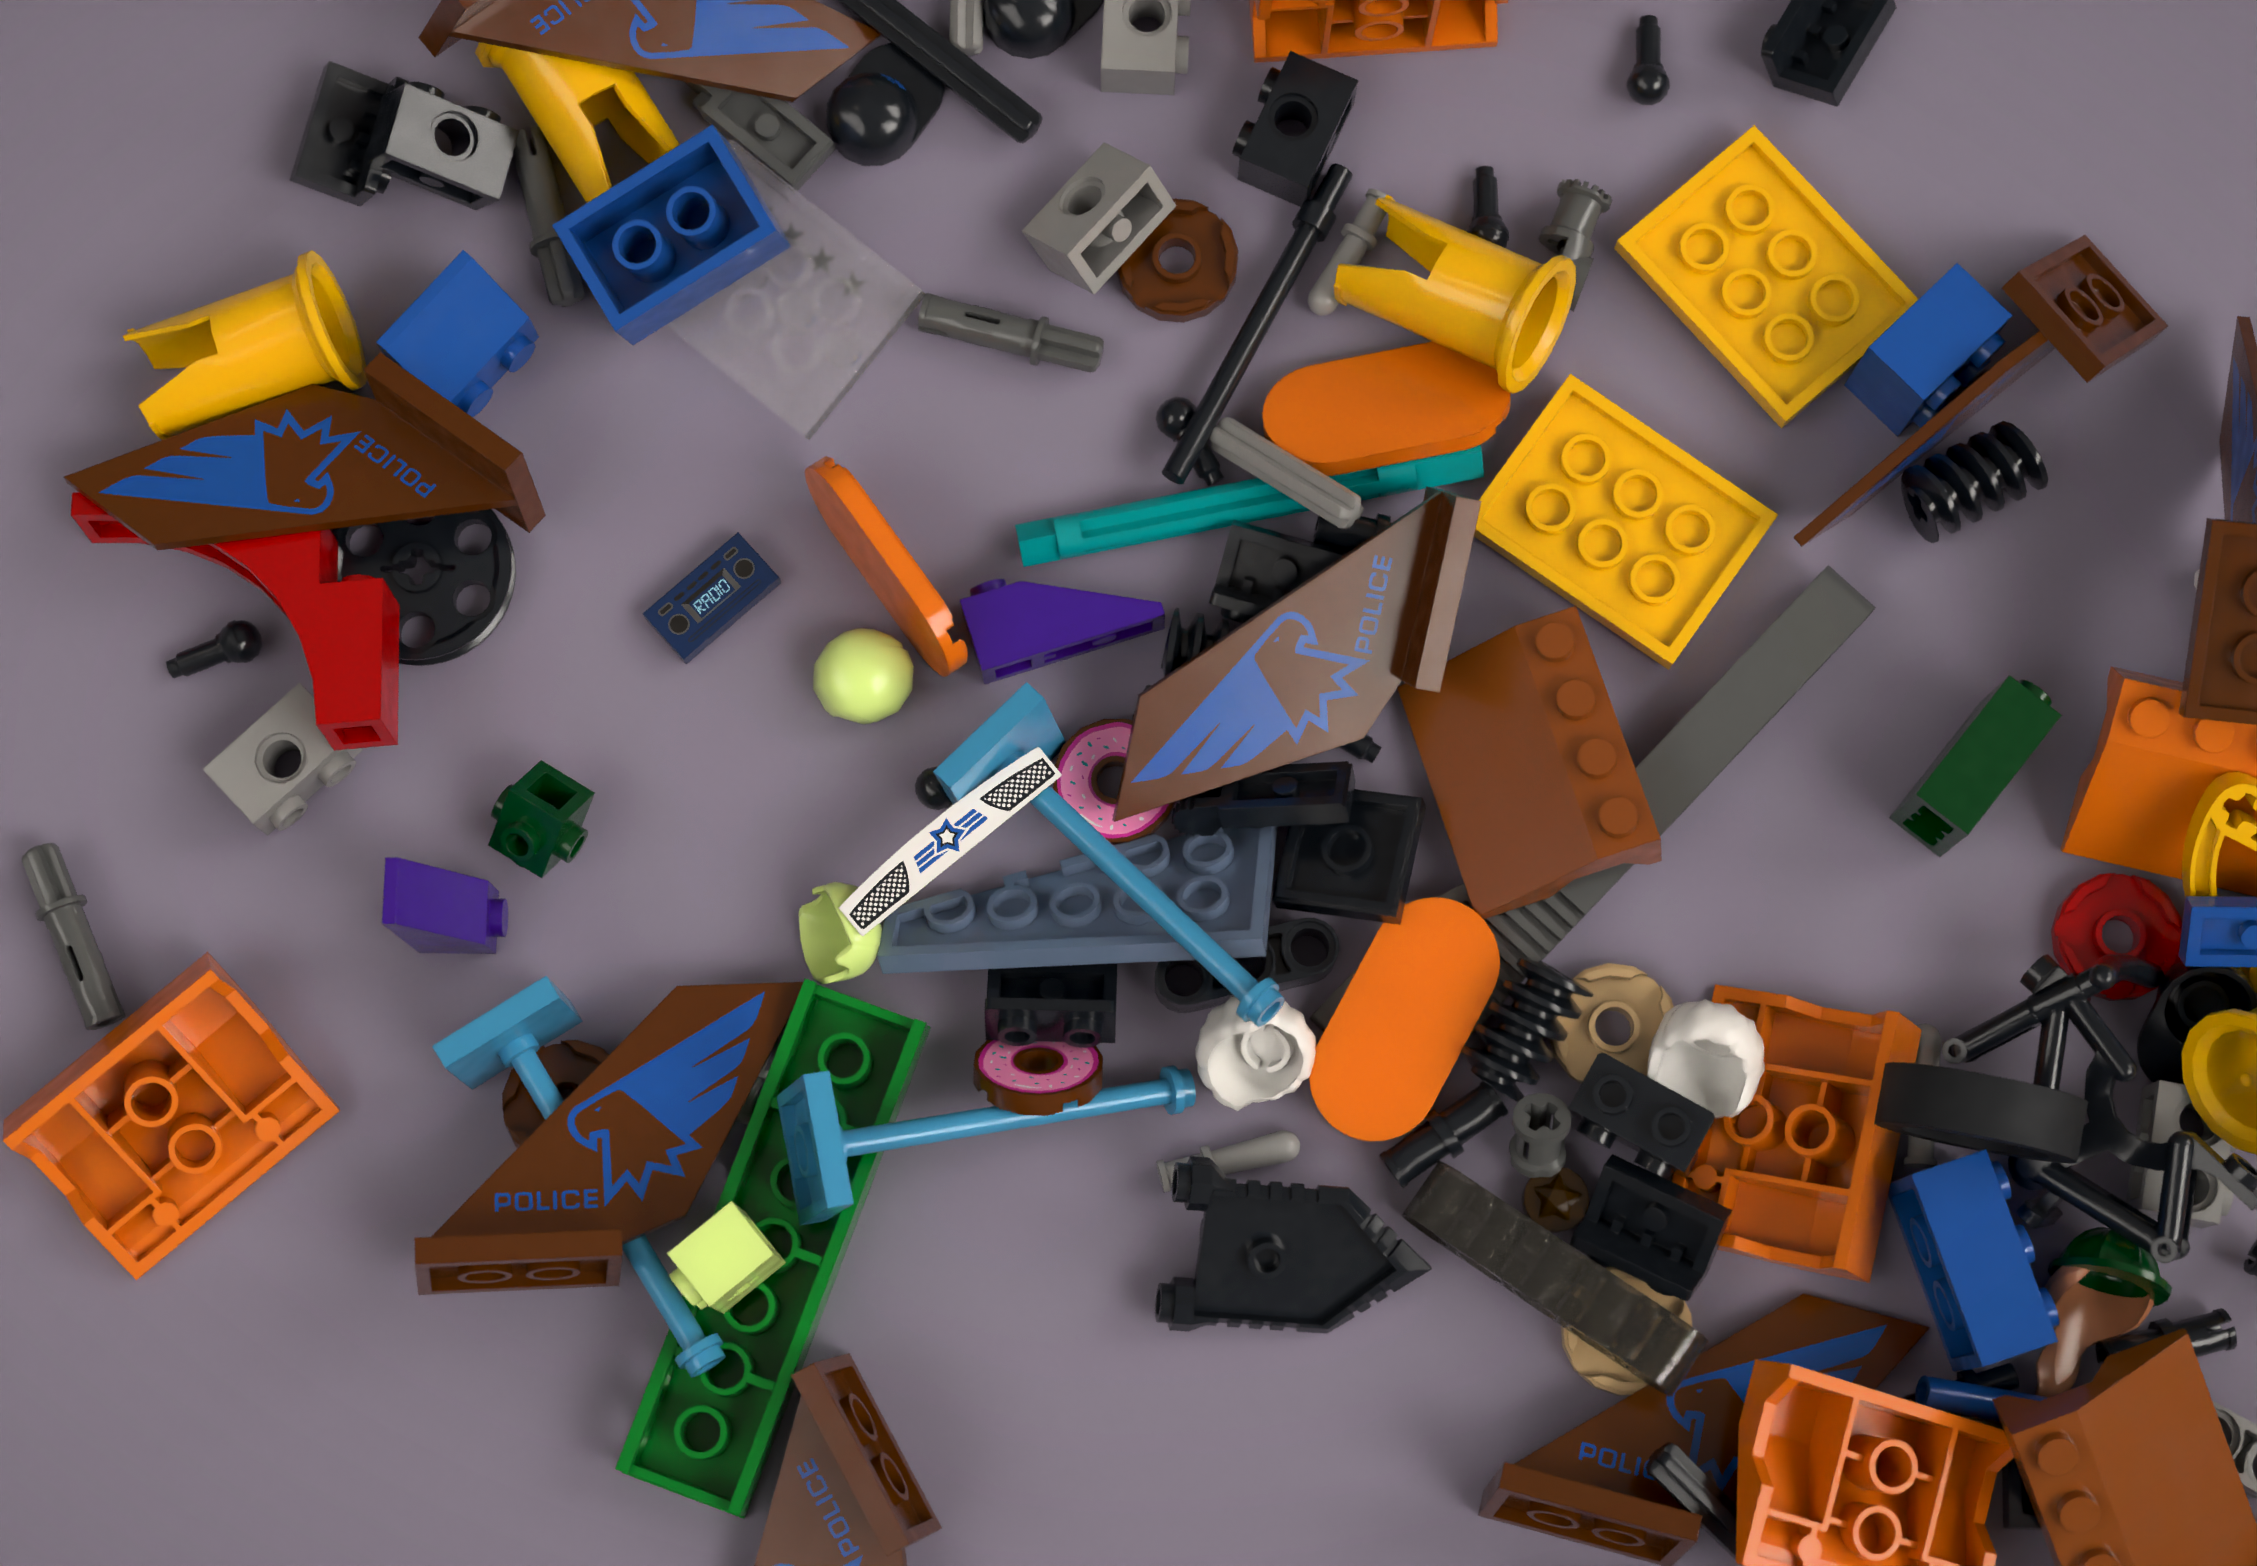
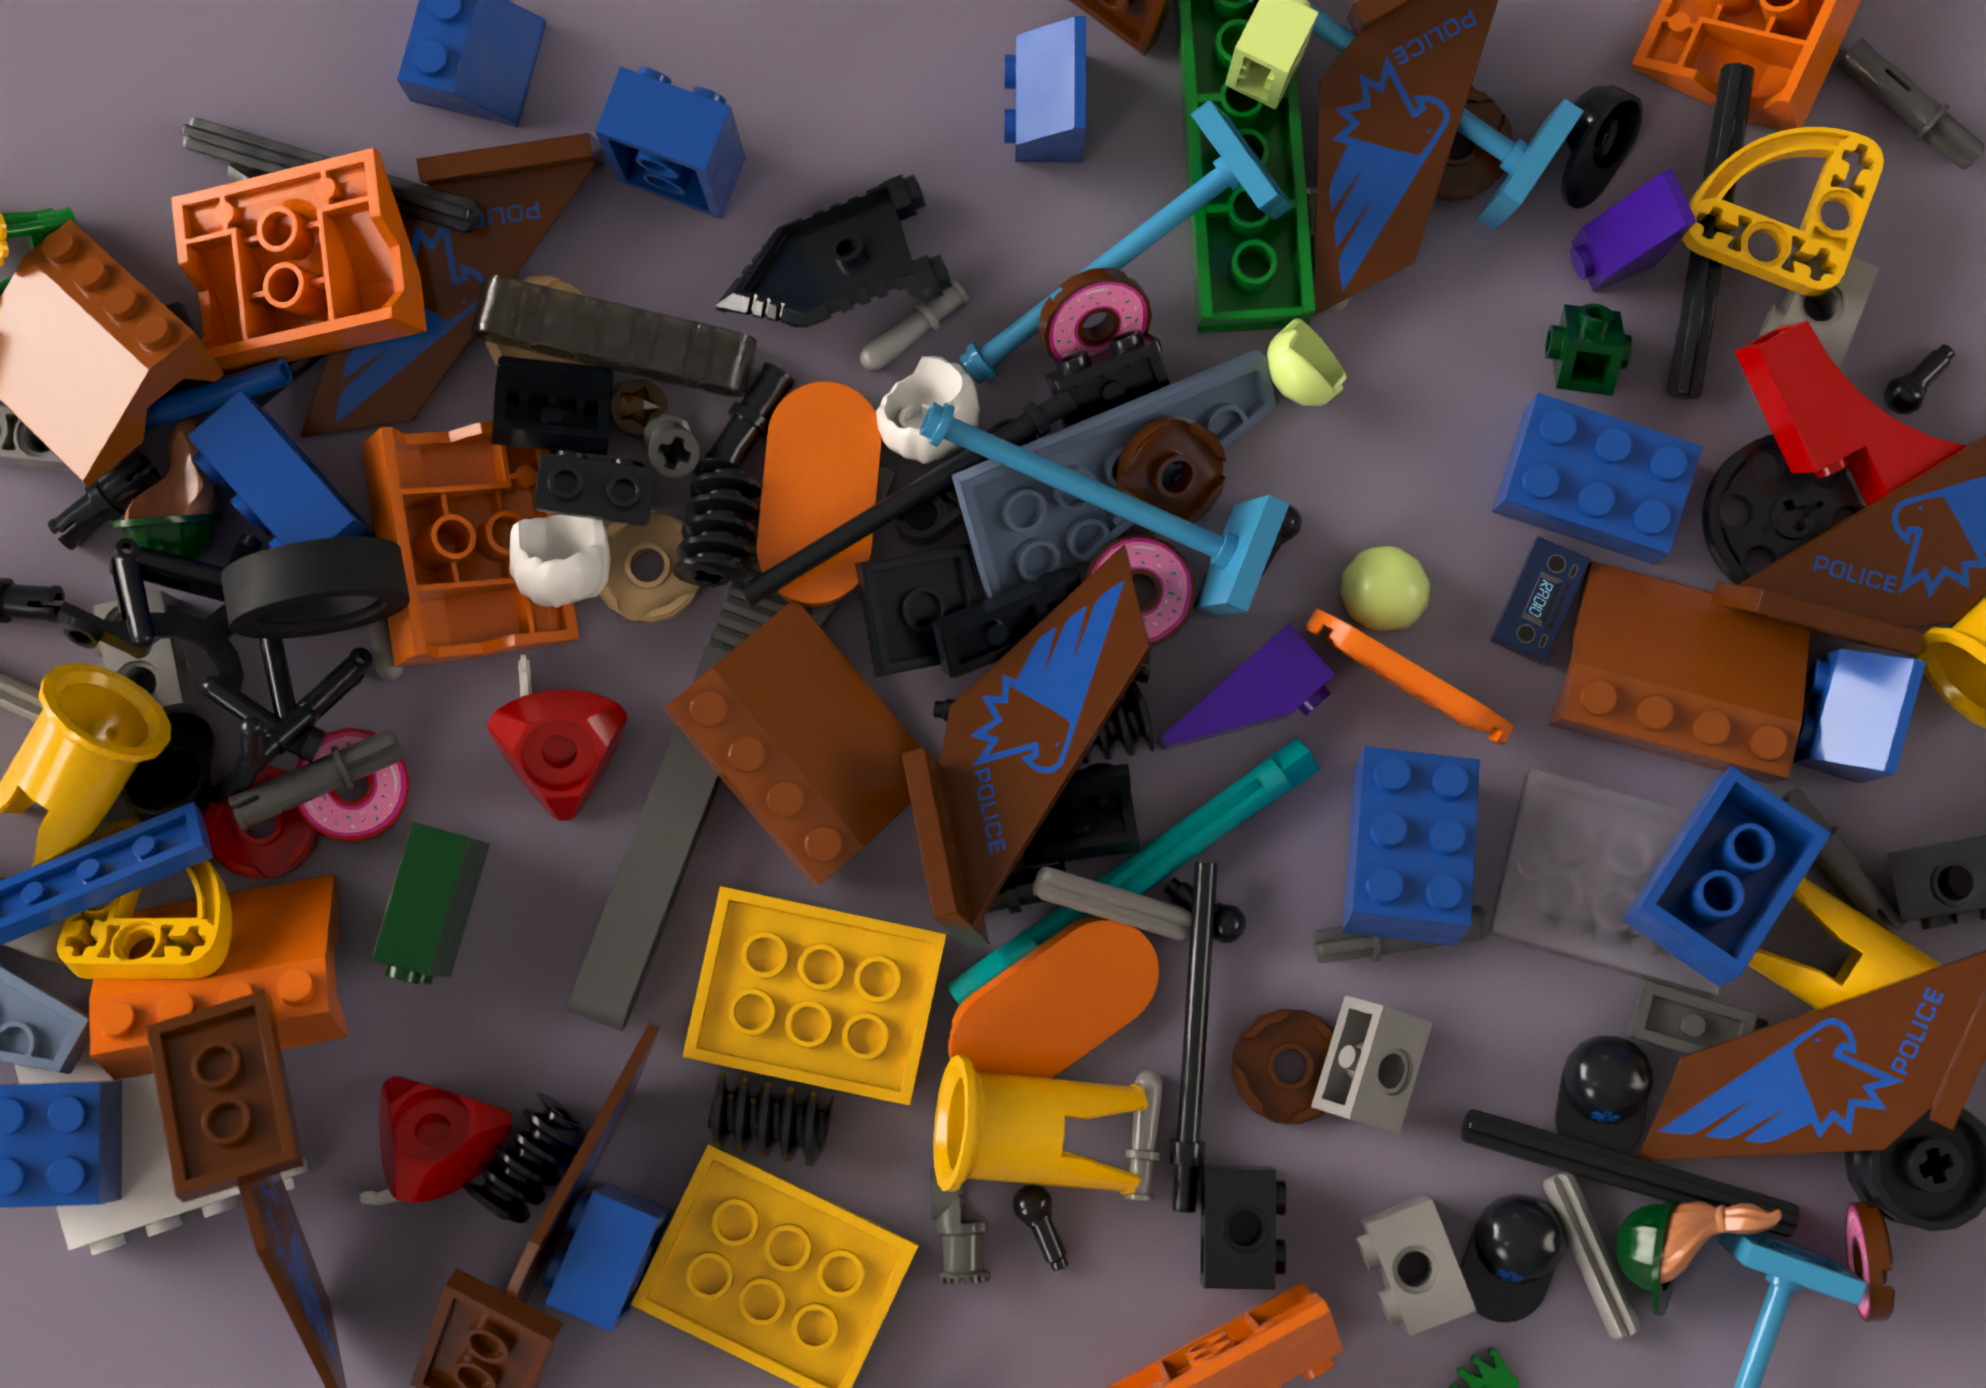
camera: 155 degrees right, 5 degrees up
(256, 826) = (1813, 236): none -> yellow beam
(349, 891) = (1704, 273): none -> black axle
(400, 1050) = (1599, 142): none -> black cap
(597, 686) = (1597, 479): none -> blue brick
(615, 459) = (1683, 675): none -> dark orange piece
(948, 839) = (1251, 463): white sticker -> none
(963, 402) = (1411, 846): none -> blue brick
(977, 1340) = (1048, 93): none -> slope
(1035, 905) = (1158, 446): none -> reddish brown tile
(1152, 984) = (1033, 421): none -> black bar
(1409, 1449) = (671, 140): none -> blue brick
(1714, 418) = (769, 1120): none -> black piece
(1780, 881) = (557, 742): none -> red hat
(2004, 892) = (363, 818): none -> tile
(2055, 937) = (316, 779): none -> dark grey axle
(2059, 540) = (432, 1140): none -> red hat

